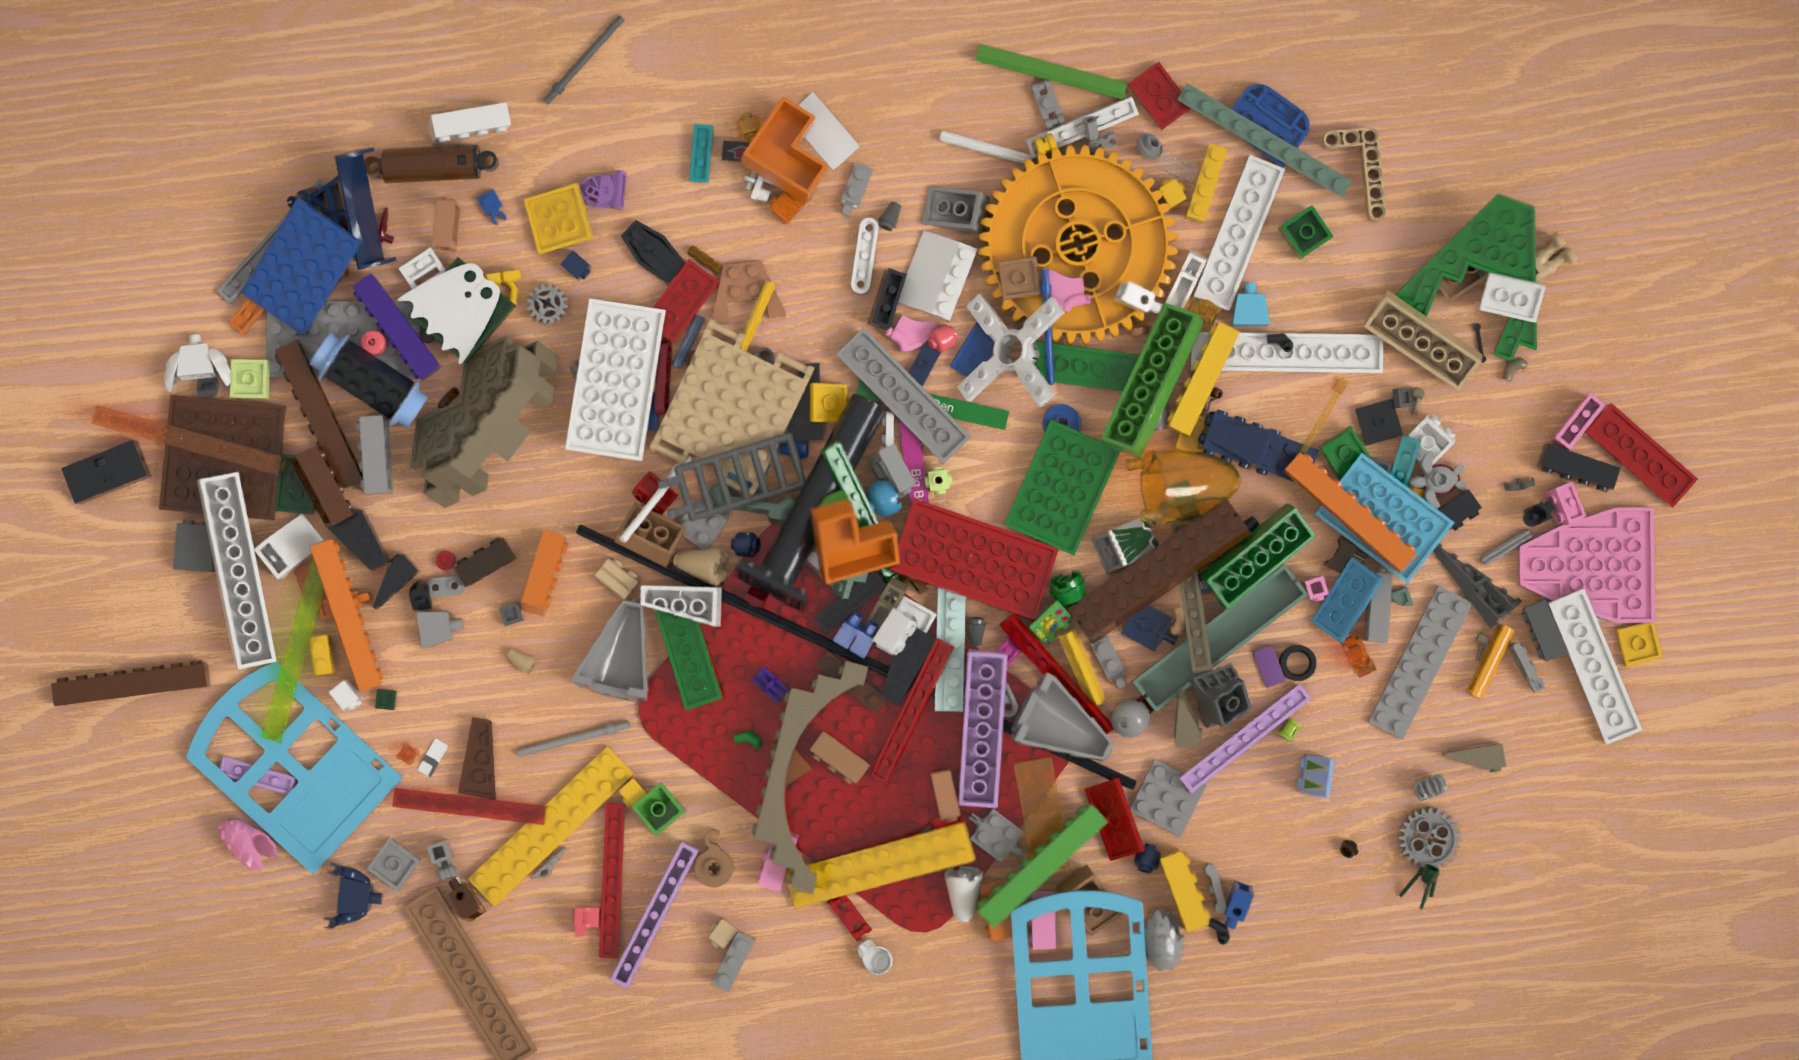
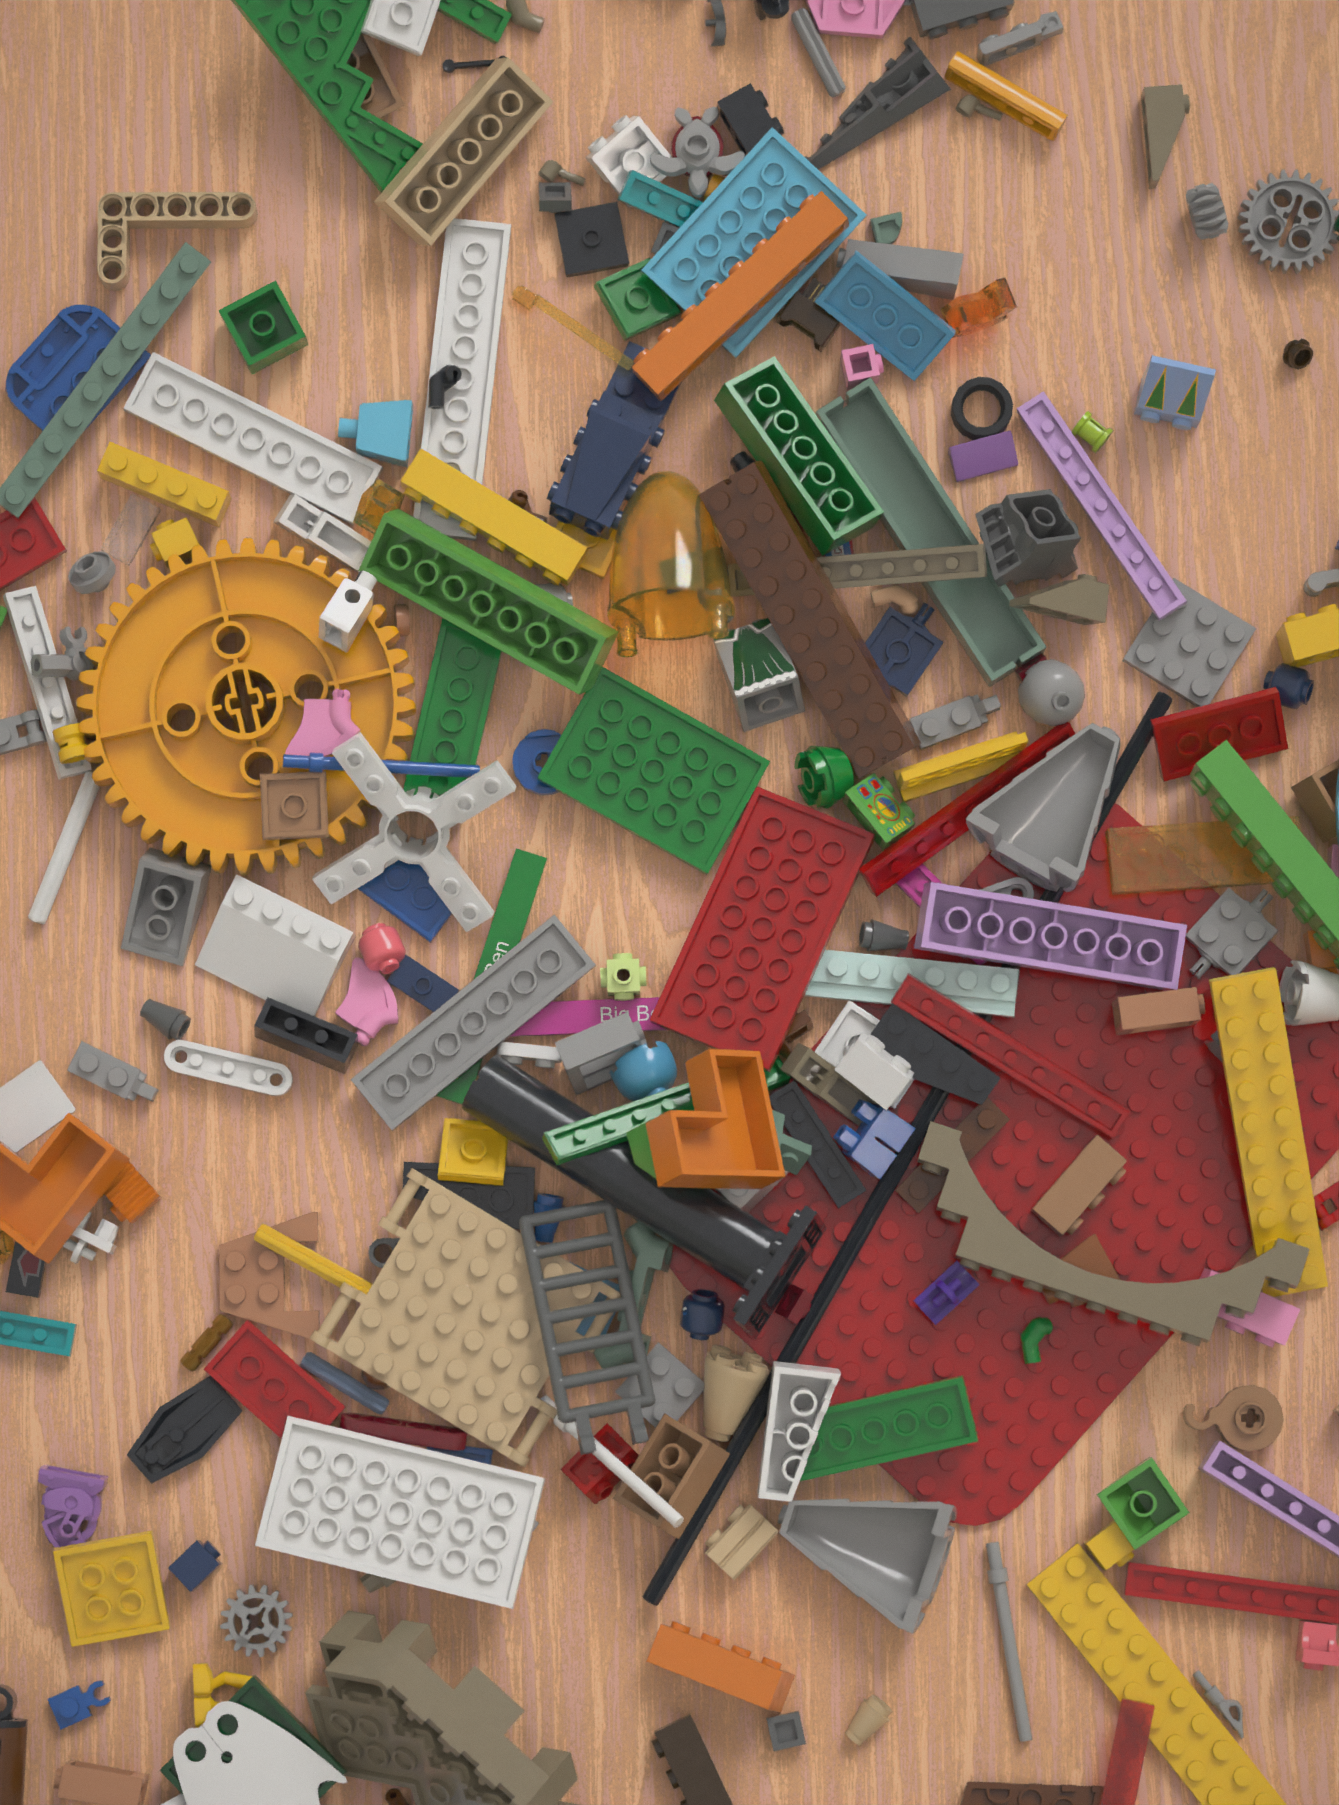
camera: 90 degrees left, 5 degrees down
(1420, 662) = (997, 210): light grey plate -> none

